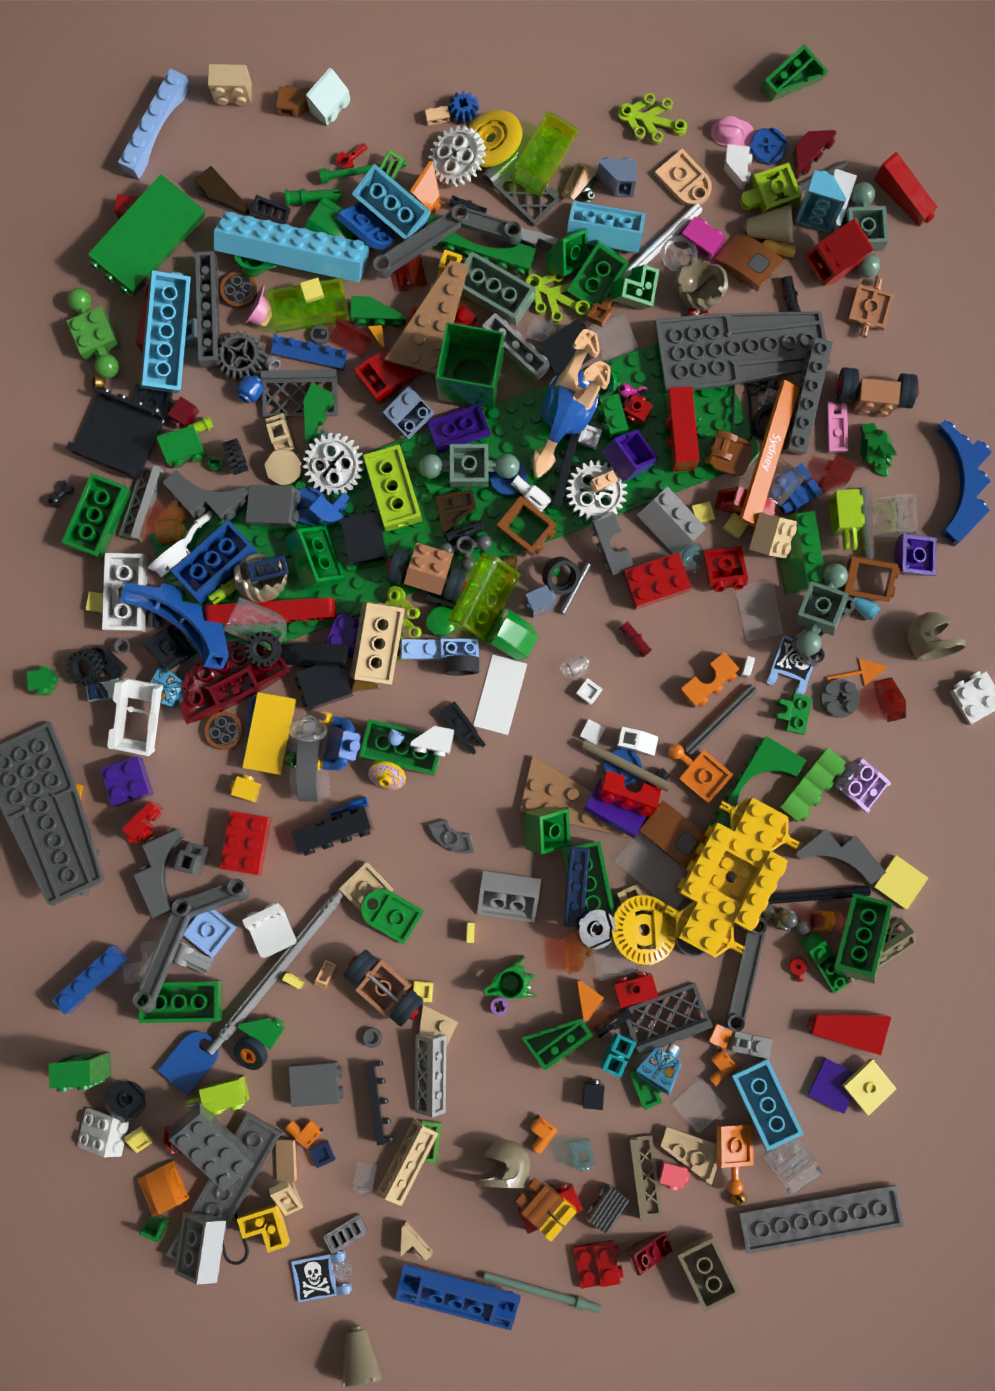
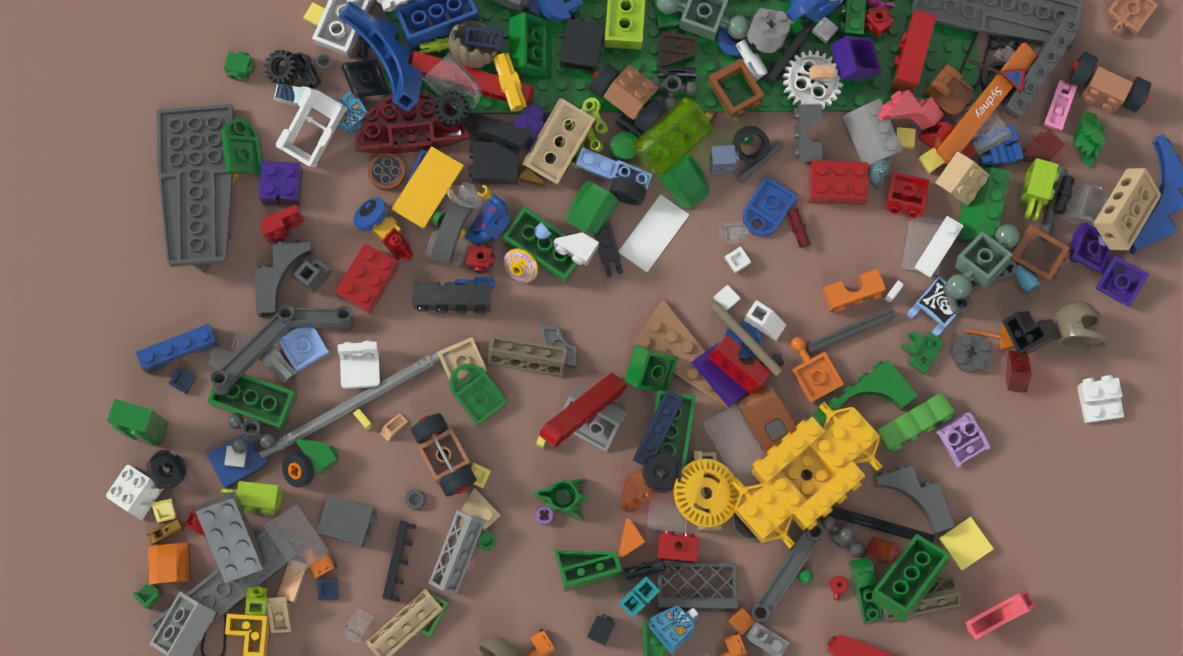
camera: 15 degrees right, 5 degrees down
(75, 763) = (241, 148): none -> green tile
(107, 1007) = (182, 380): none -> dark blue tile
(148, 1157) = (167, 530): none -> pearl gold bar
(186, 1063) = (234, 459): none -> white tile
(187, 1052) = (240, 445): none -> dark grey piece
(224, 780) = (370, 213): none -> blue tile
(257, 1191) = (256, 595): none -> lime brick
(262, 800) = (397, 245): none -> red hinge
(274, 1120) = (296, 539): none -> clear tile
(309, 603) = (509, 82): none -> yellow piece
(338, 783) = (474, 258): none -> red brick
(425, 857) = (526, 353): none -> dark tan fence
(432, 695) = (591, 208): none -> green slope
(454, 1050) = (486, 540): none -> green tile
(499, 898) = (583, 409): none -> red beam
(538, 460) = (768, 30): none -> light grey brick
(599, 628) = (768, 206): none -> blue tile
(690, 484) = (904, 105): none -> coral arch
(764, 970) = (805, 576): none -> green hinge
(773, 608) = (938, 246): none -> white slope
(786, 418) = (1014, 76): none -> piece
(872, 513) = (1063, 194): none -> black pin
(888, 663) = (1027, 334): none -> black brick
(938, 507) = (1127, 209): none -> tan brick
(955, 941) = (1000, 614): none -> coral arch
(956, 576) = (1121, 281): none -> dark purple slope

